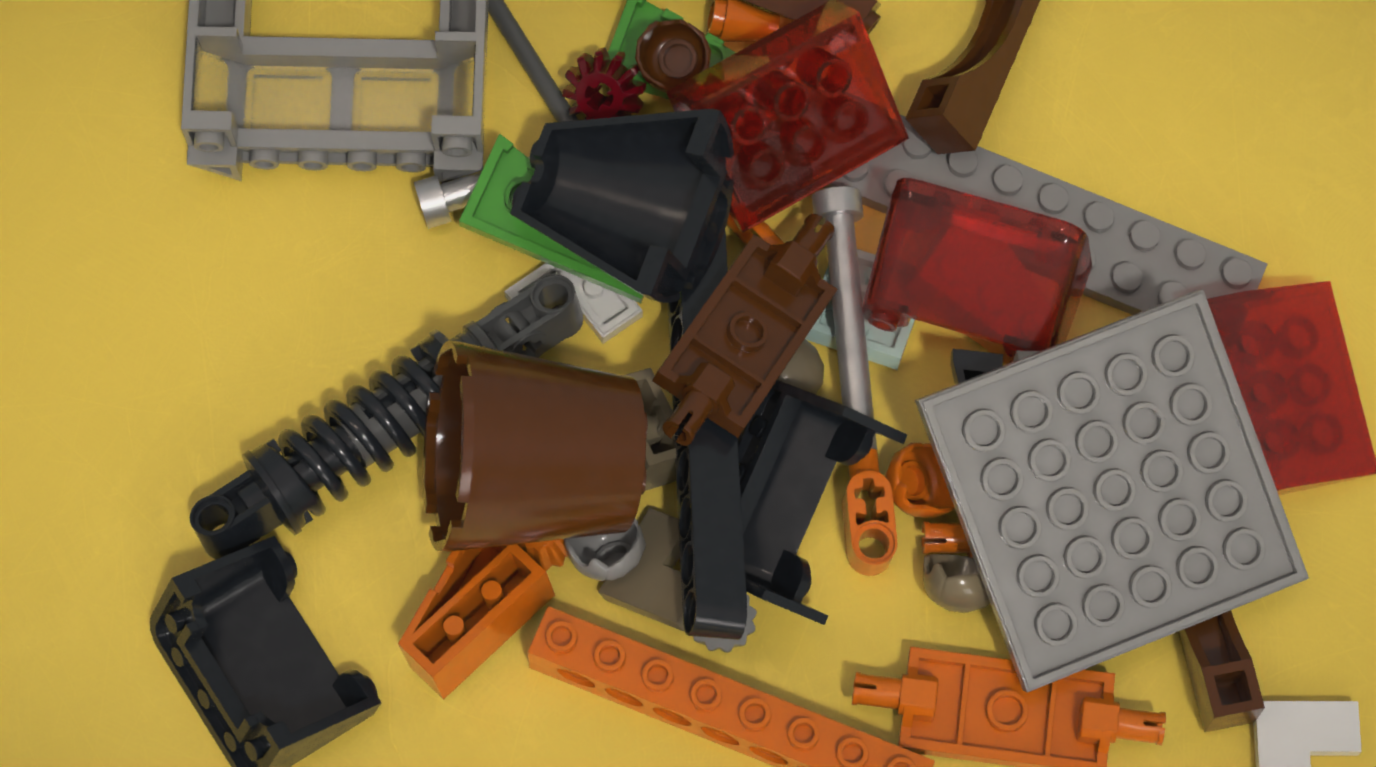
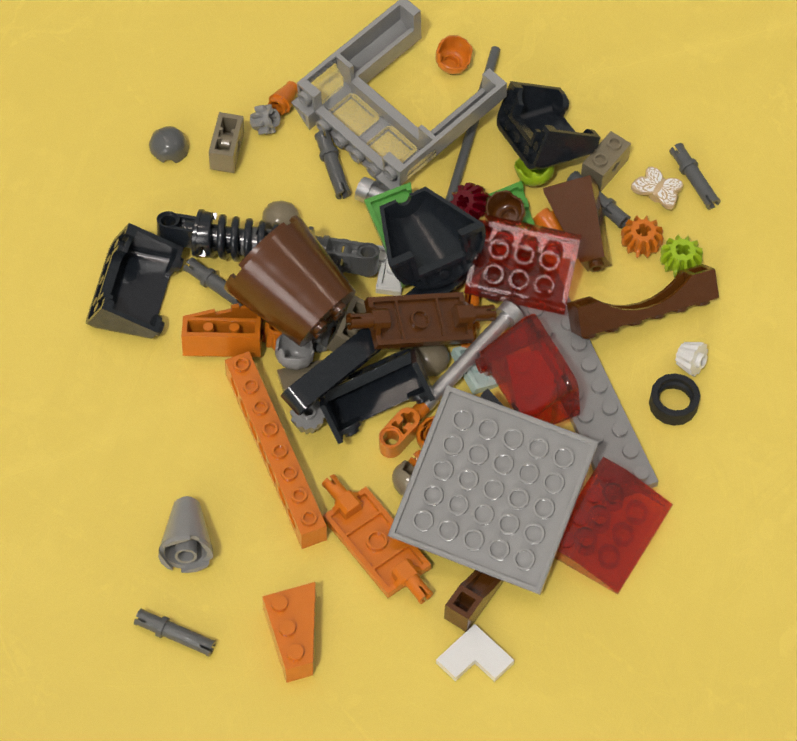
camera: 45 degrees right, 10 degrees down
(64, 394) = (169, 144): none -> dark grey hair
(156, 313) = (226, 142): none -> dark tan brick
(158, 167) = (283, 97): none -> orange cone
(170, 225) = (264, 119): none -> light grey gear
(322, 196) = (329, 156): none -> dark grey pin
(352, 353) = (279, 212): none -> dark tan hair
(365, 544) = (209, 279): none -> dark grey pin
(1127, 42) = (692, 357): none -> white piece
(1175, 92) = (679, 382): none -> black tyre

